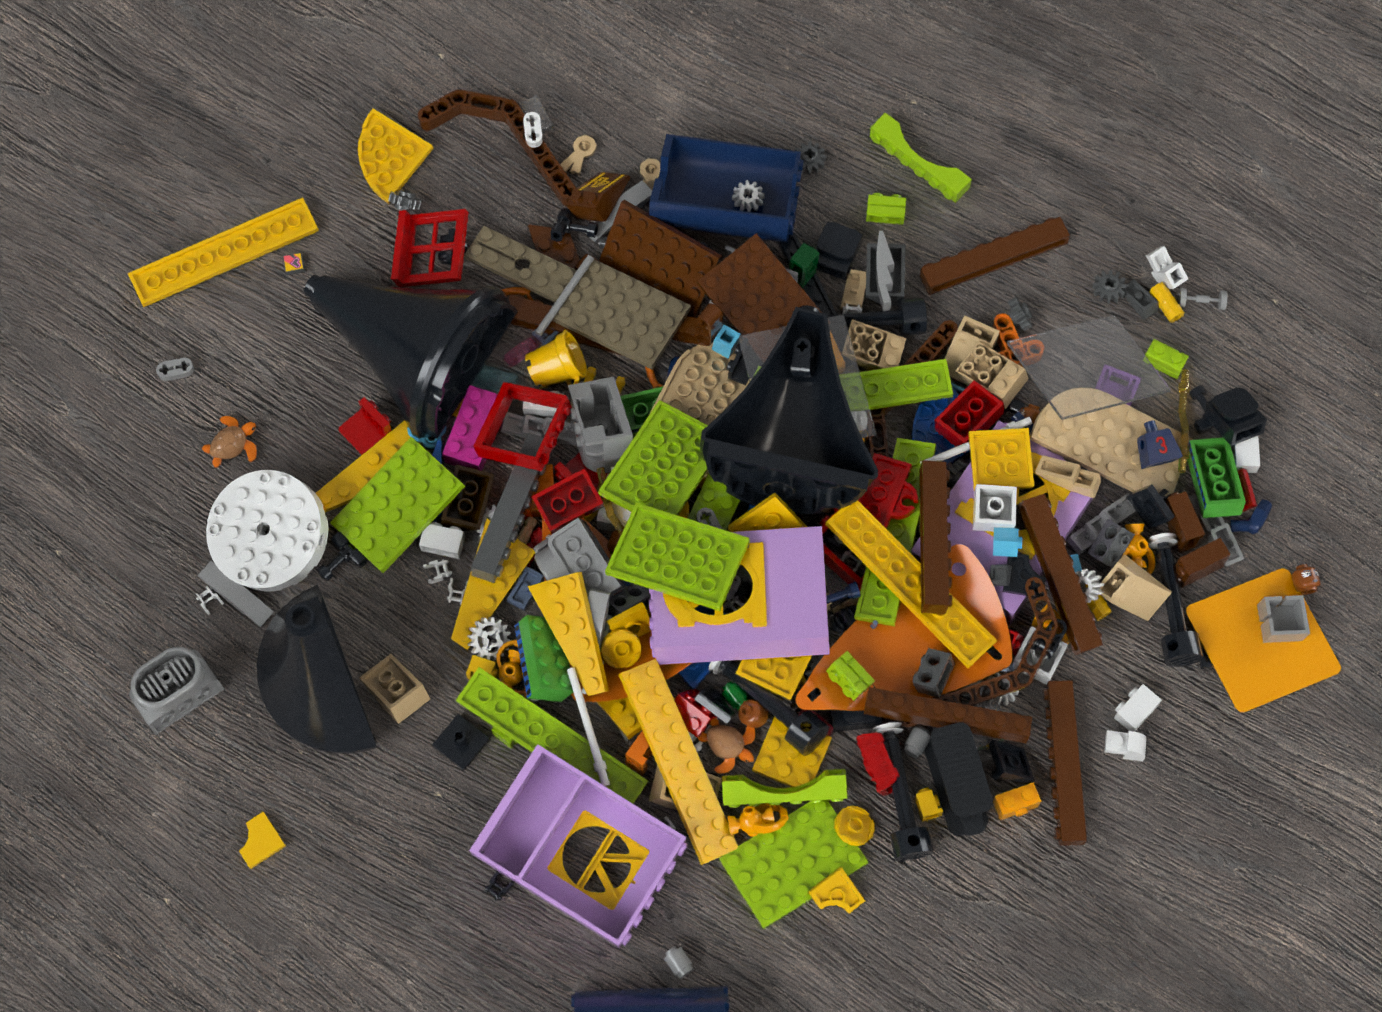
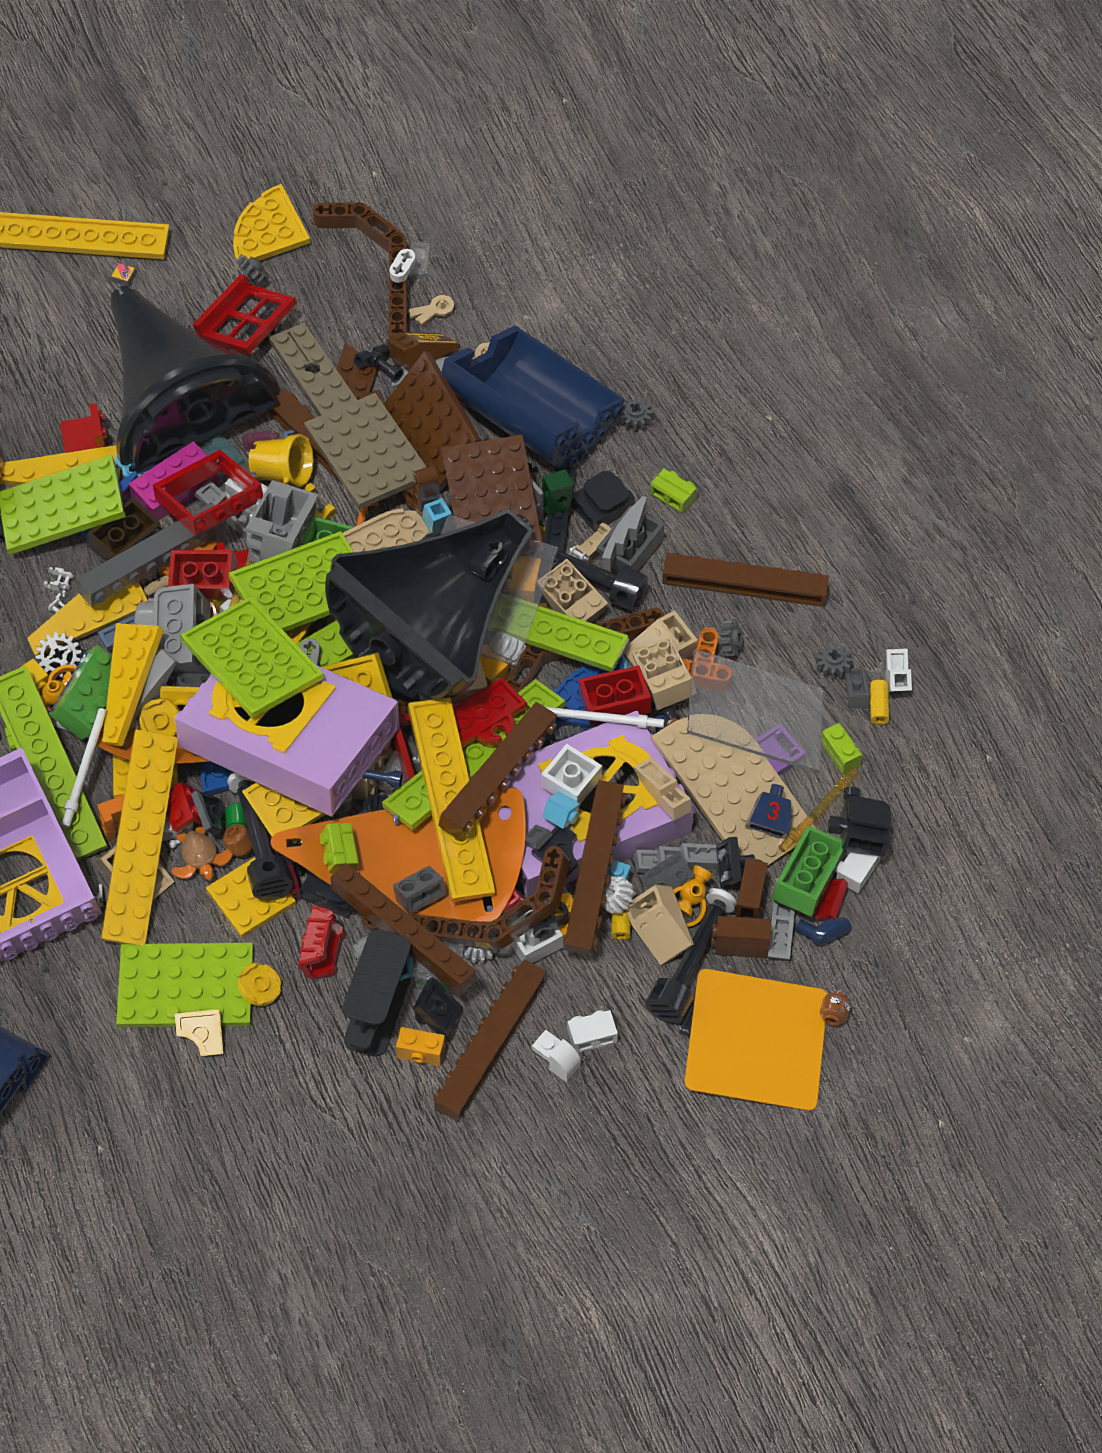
camera: 30 degrees right, 10 degrees down
(442, 540) = (78, 554): white brick -> none
(518, 291) = (298, 392): orange piece -> none
(564, 295) = (327, 409): light grey piece -> none
(678, 962) = (21, 1009): light grey brick -> none
(745, 203) = (554, 415): white gear -> none
(758, 820) = (175, 930): light orange piece -> none
(827, 786) = (182, 897): lime arch -> none
(908, 831) = (298, 1023): black piece -> none
(928, 804) = (334, 1004): yellow brick -> none
(948, 180) = (750, 496): lime arch -> none
(1001, 458) = (612, 738): yellow plate -> none
(1222, 300) = (934, 727): light grey wheel -> none
(1285, 622) = (784, 1033): light grey piece -> none

